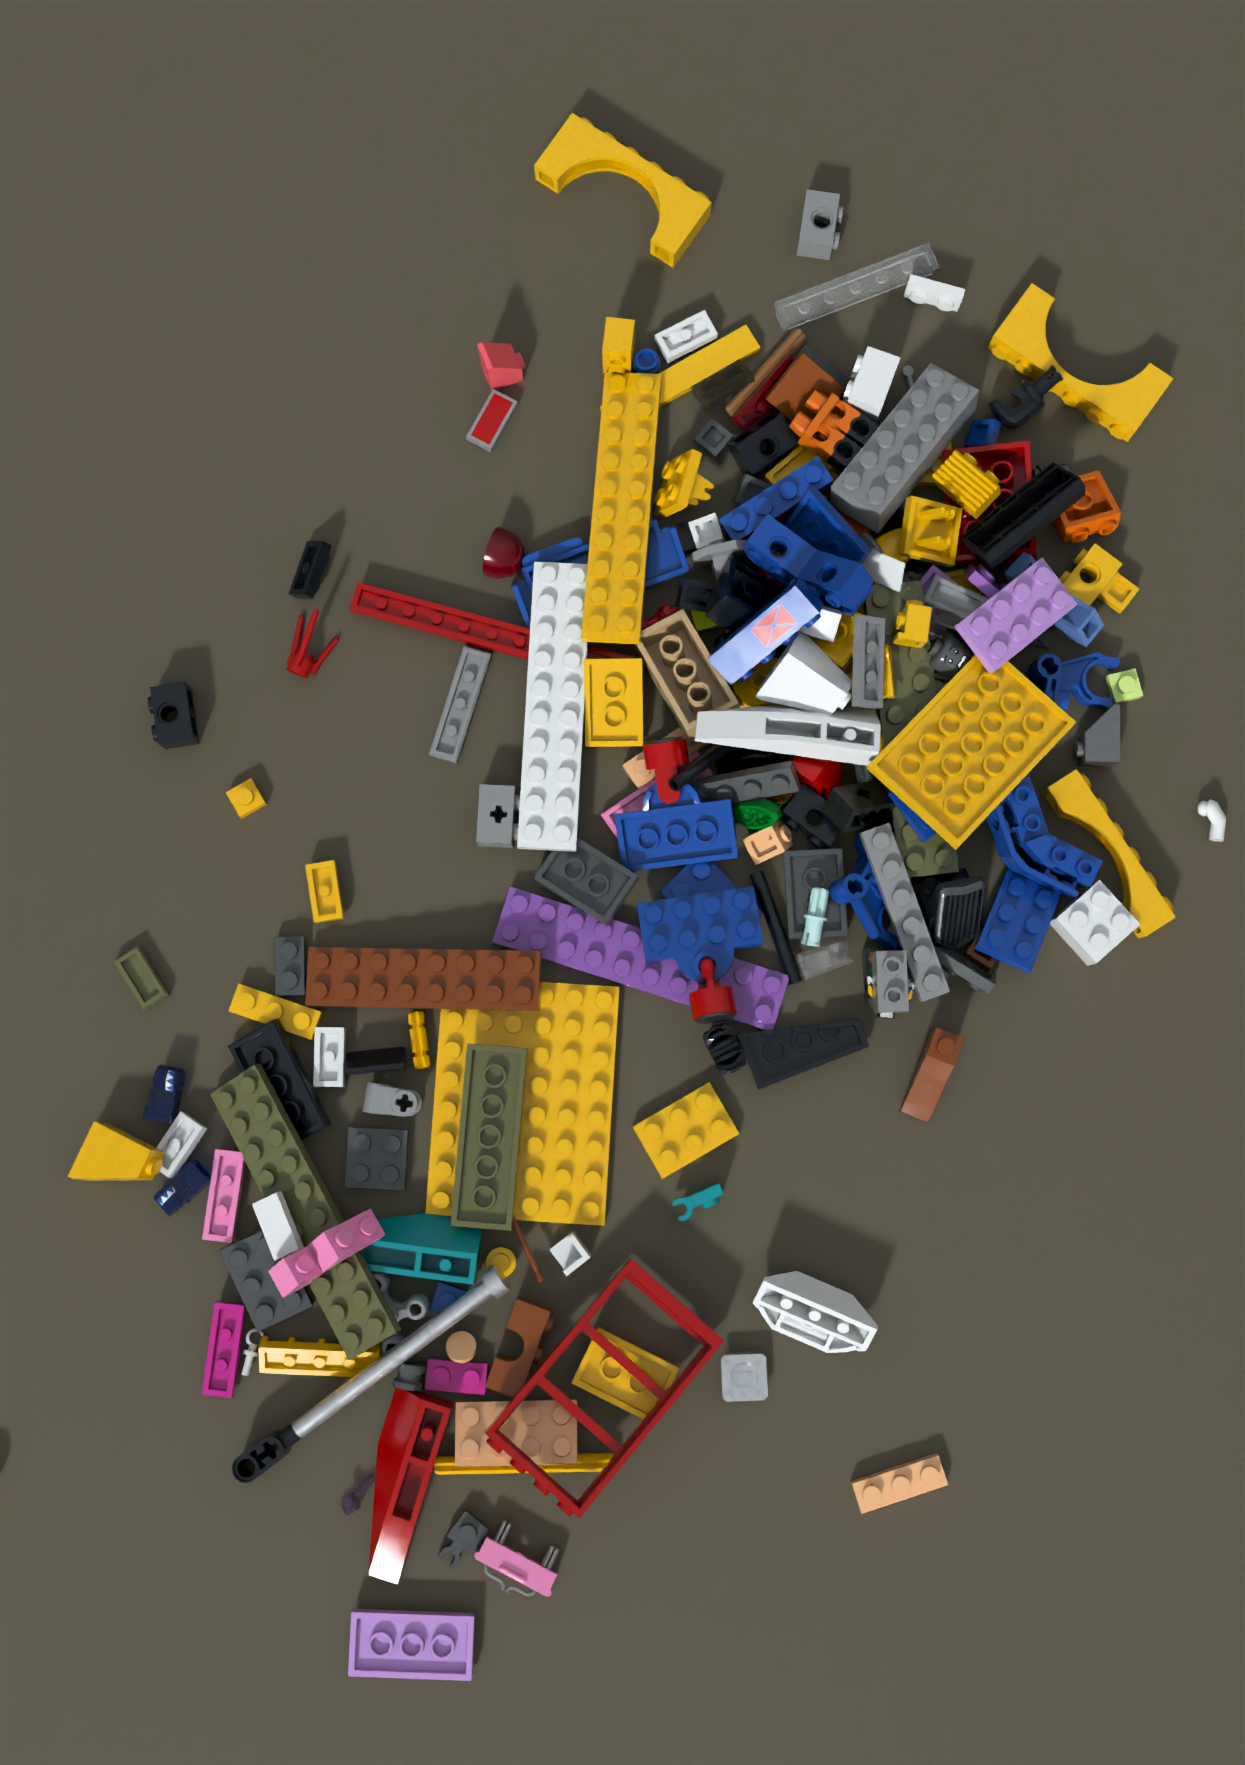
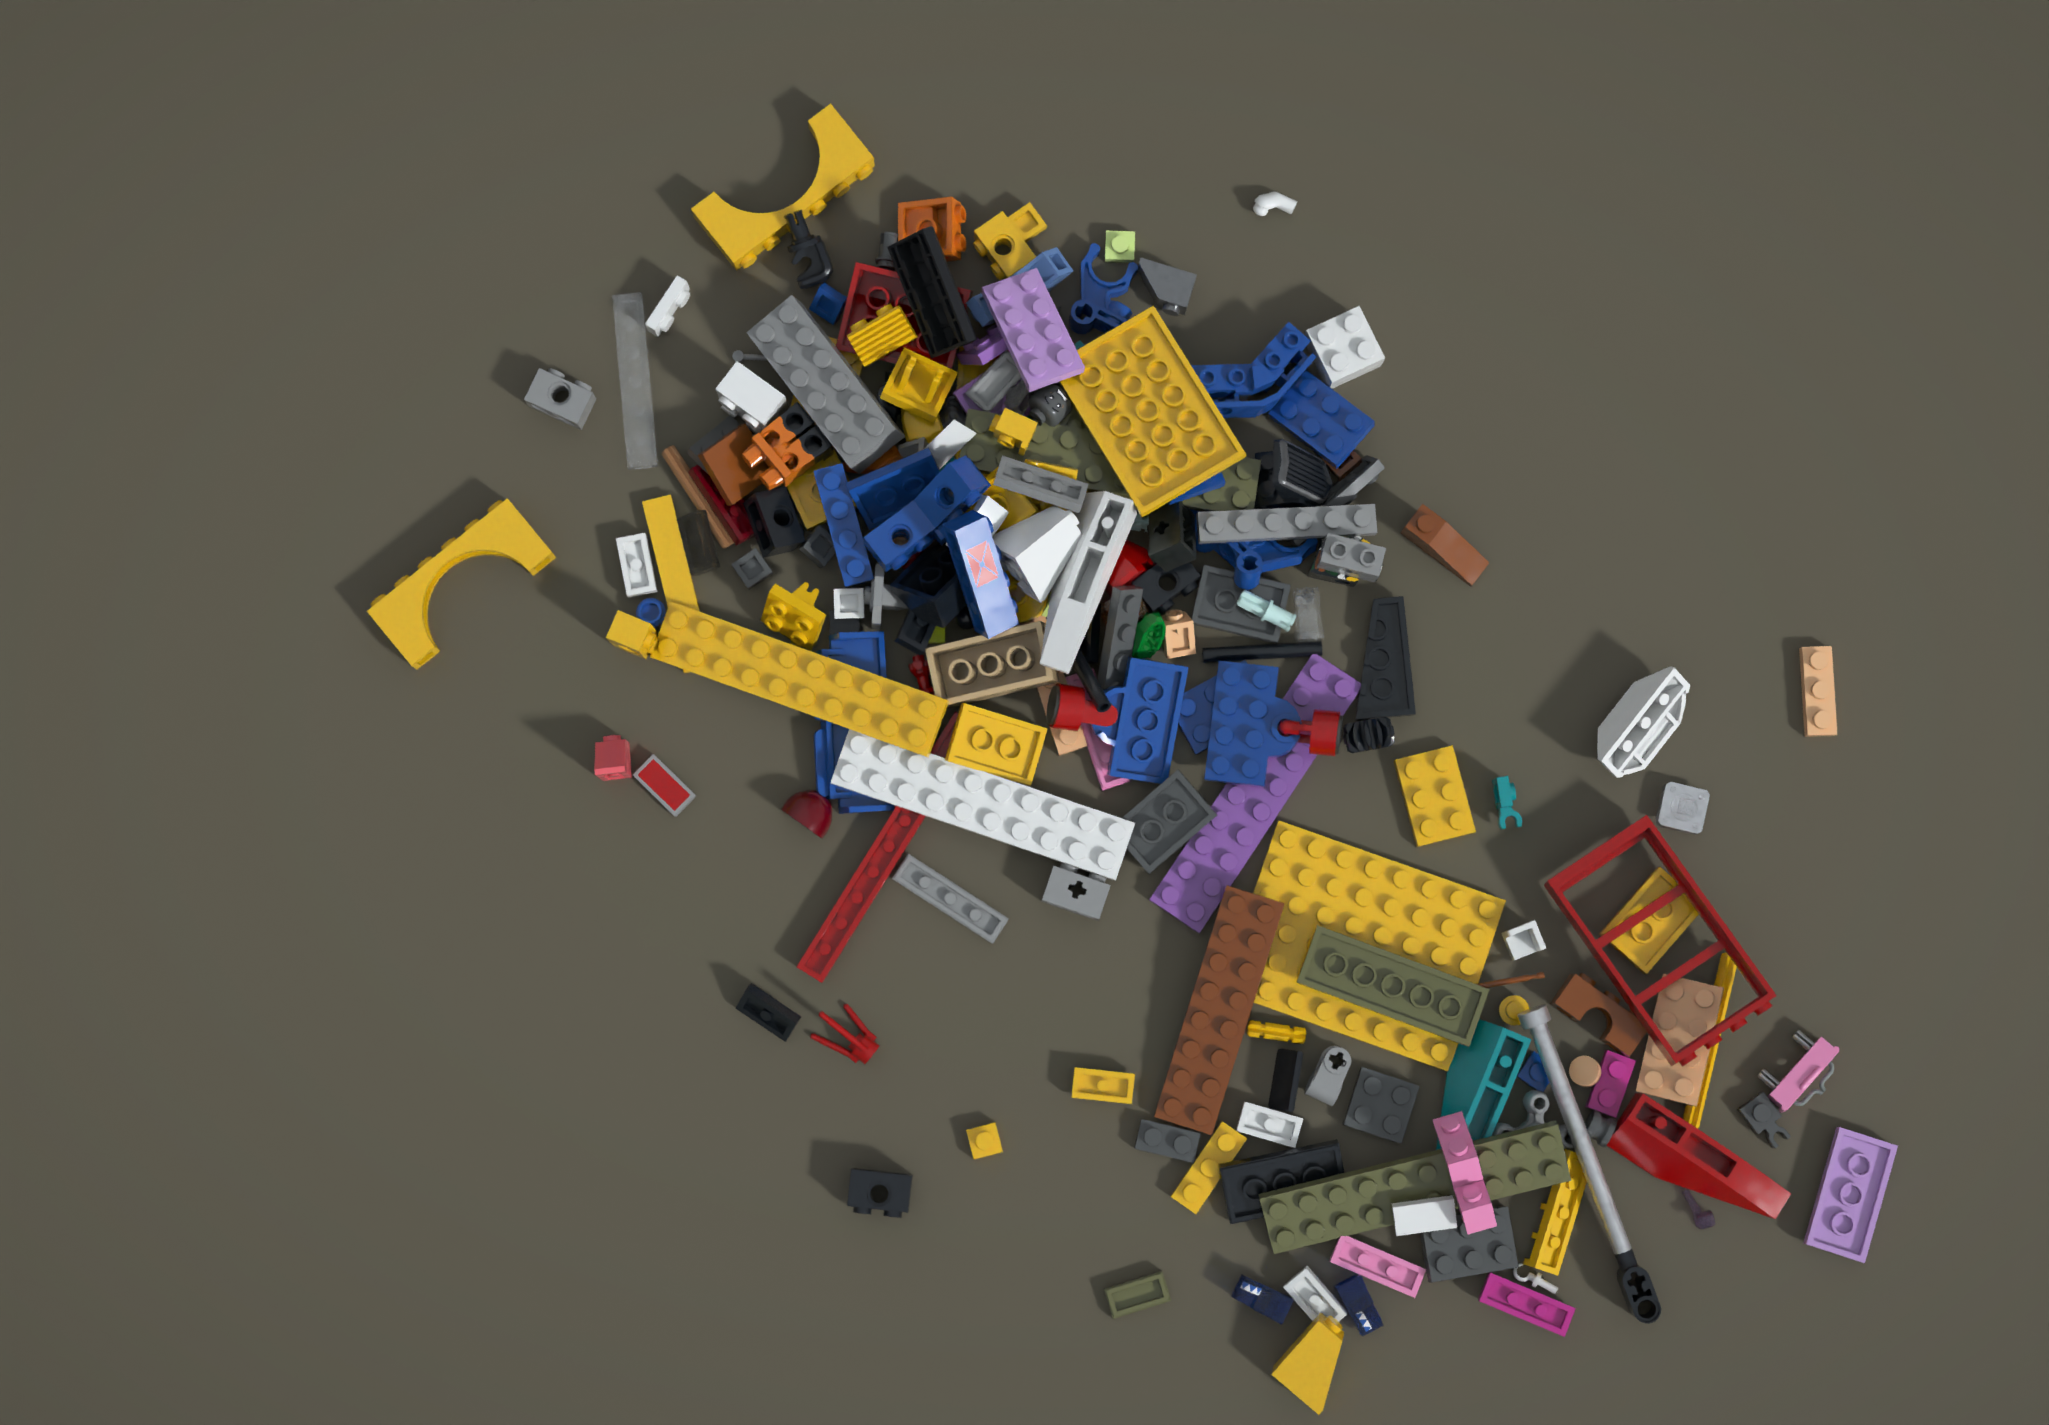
camera: 80 degrees left, 0 degrees up
(1075, 802) = (1219, 329): yellow arch -> none

